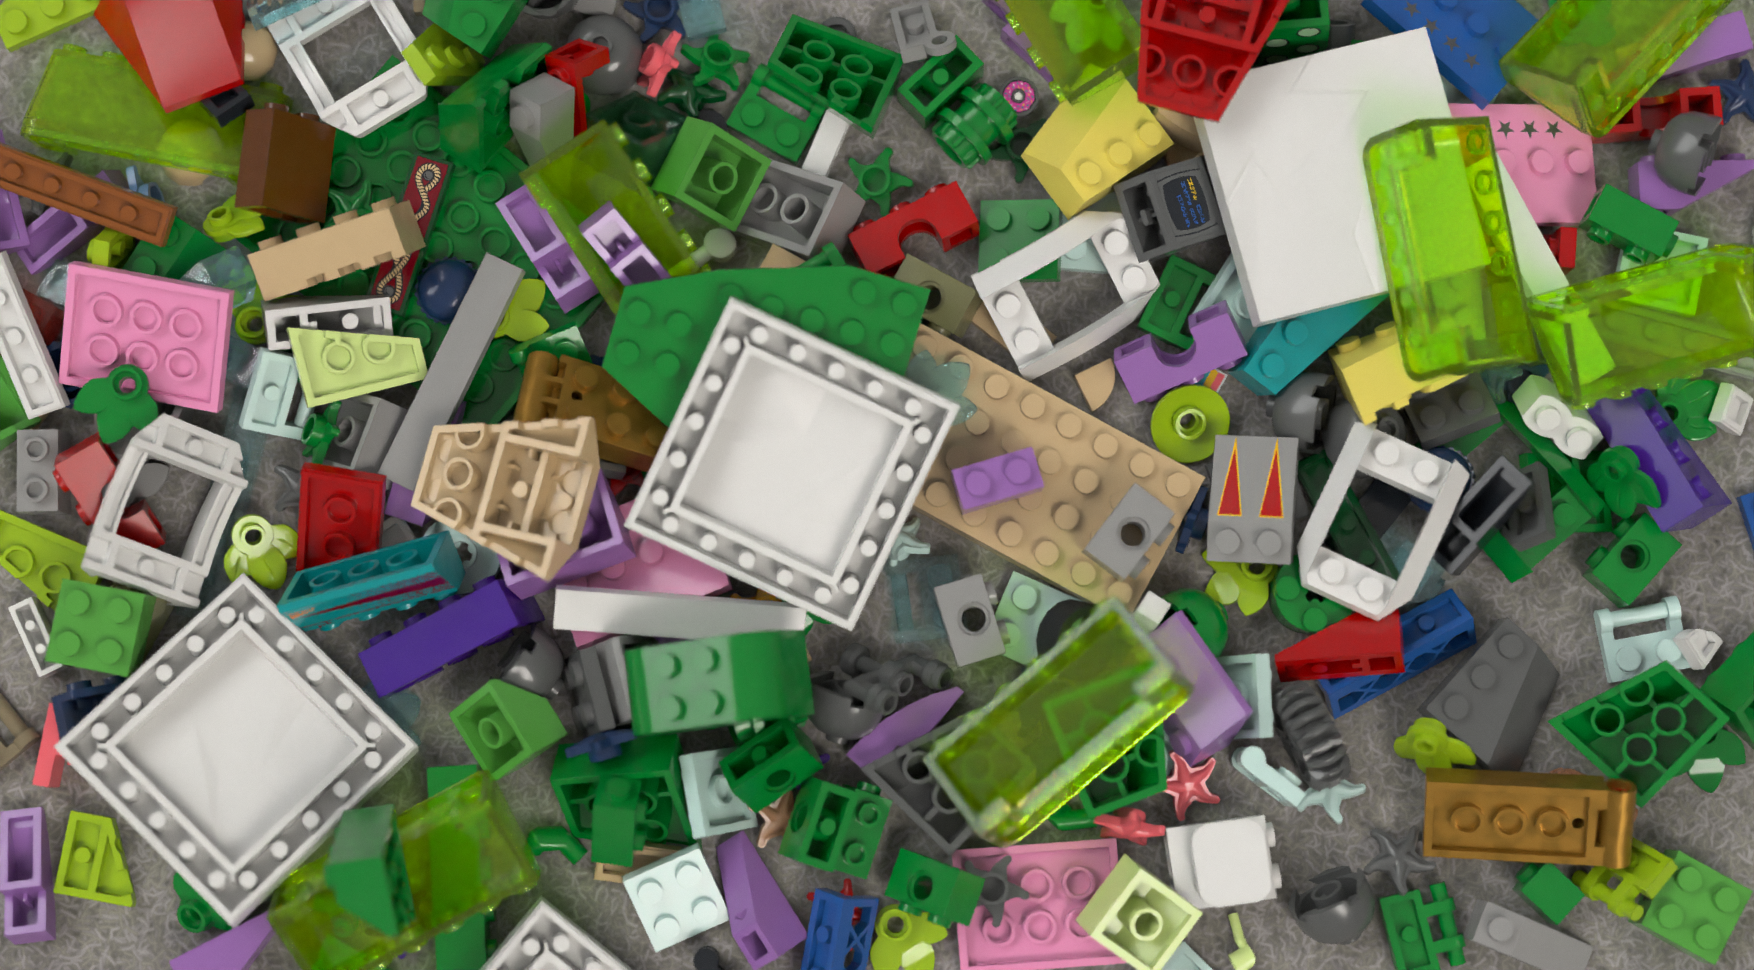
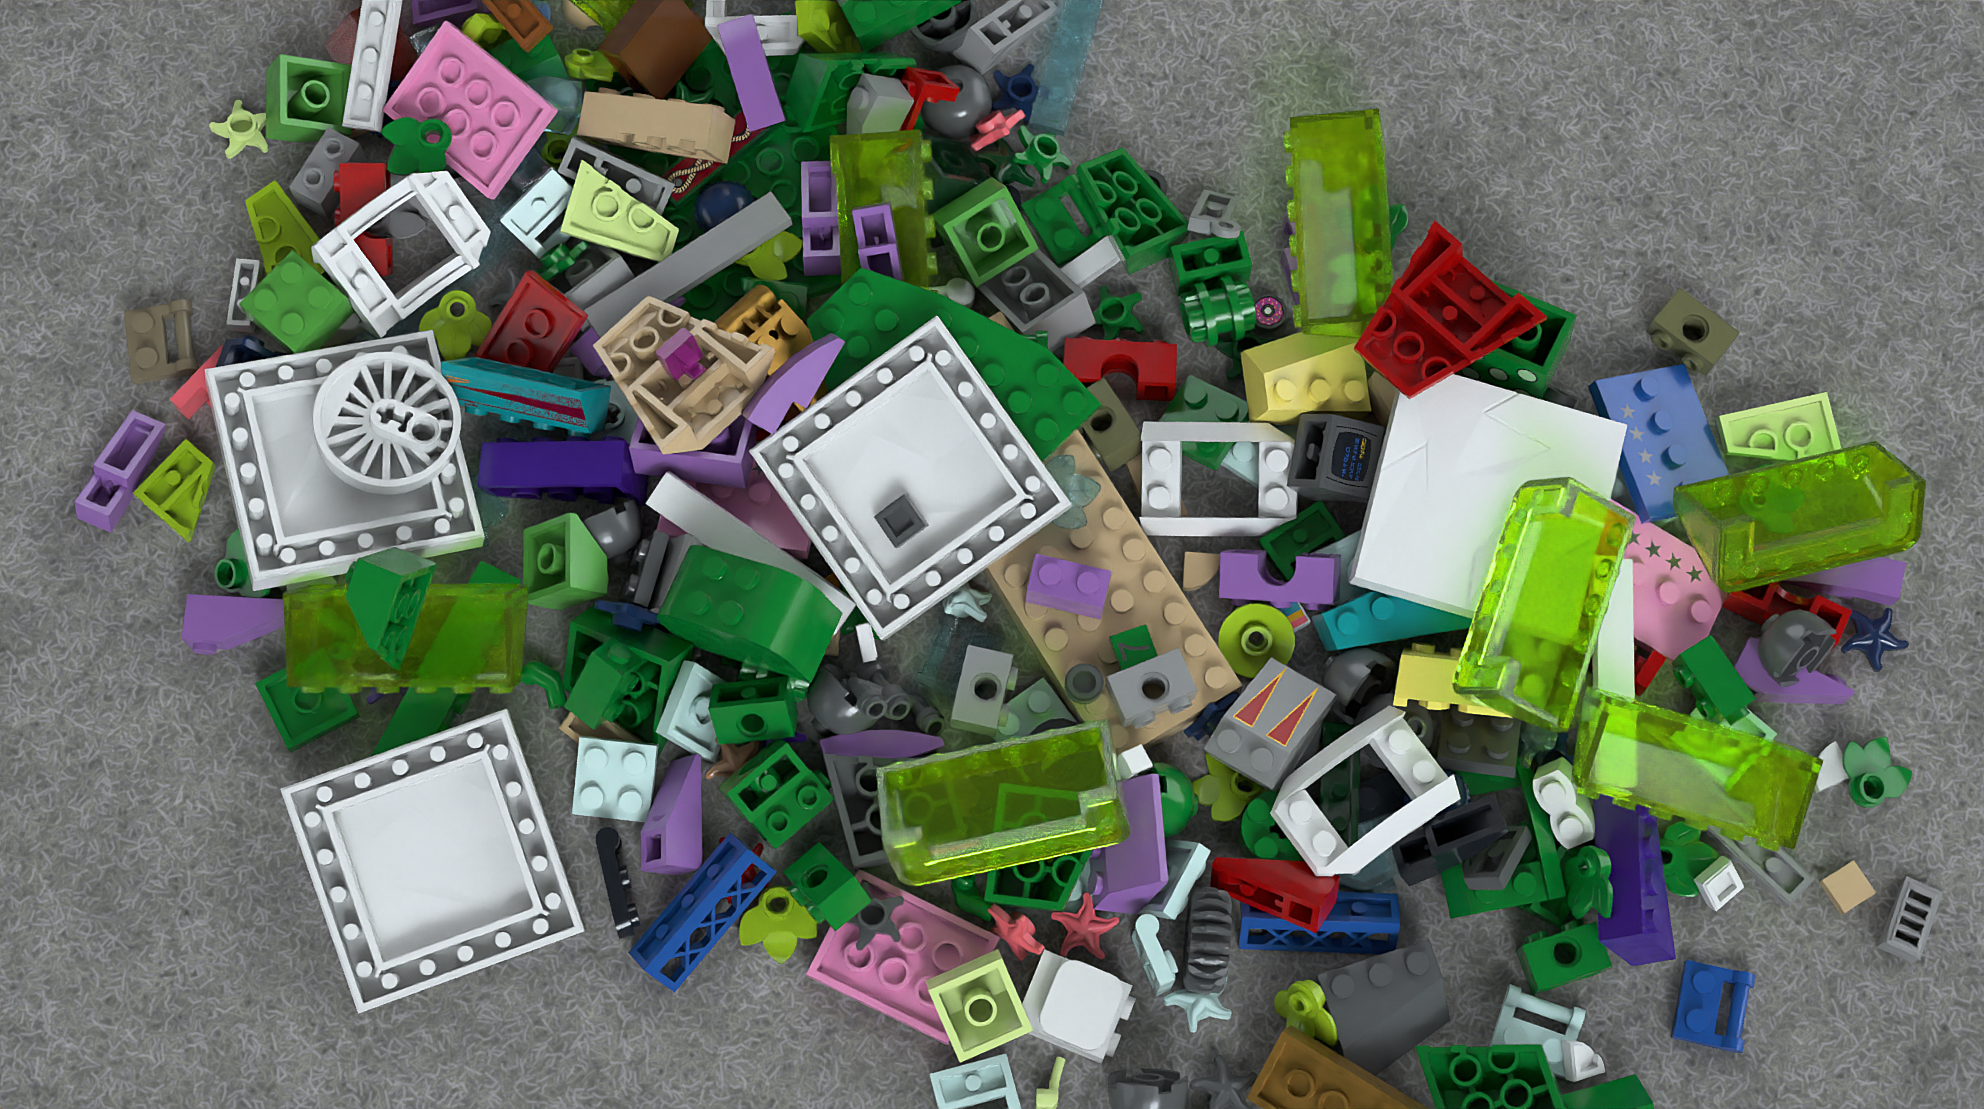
camera: 30 degrees right, 10 degrees down
(196, 705) = (368, 420): none -> white piece
(397, 145) = (751, 72): none -> medium lavender slope
(506, 472) = (681, 356): none -> magenta tile
(627, 437) = (793, 381): none -> medium lavender slope
(806, 509) = (901, 521): none -> dark grey tile
(834, 636) = (866, 642): none -> white tile
(1062, 562) = (1083, 683): none -> dark grey tile
(1089, 503) = (1132, 647): none -> green tile

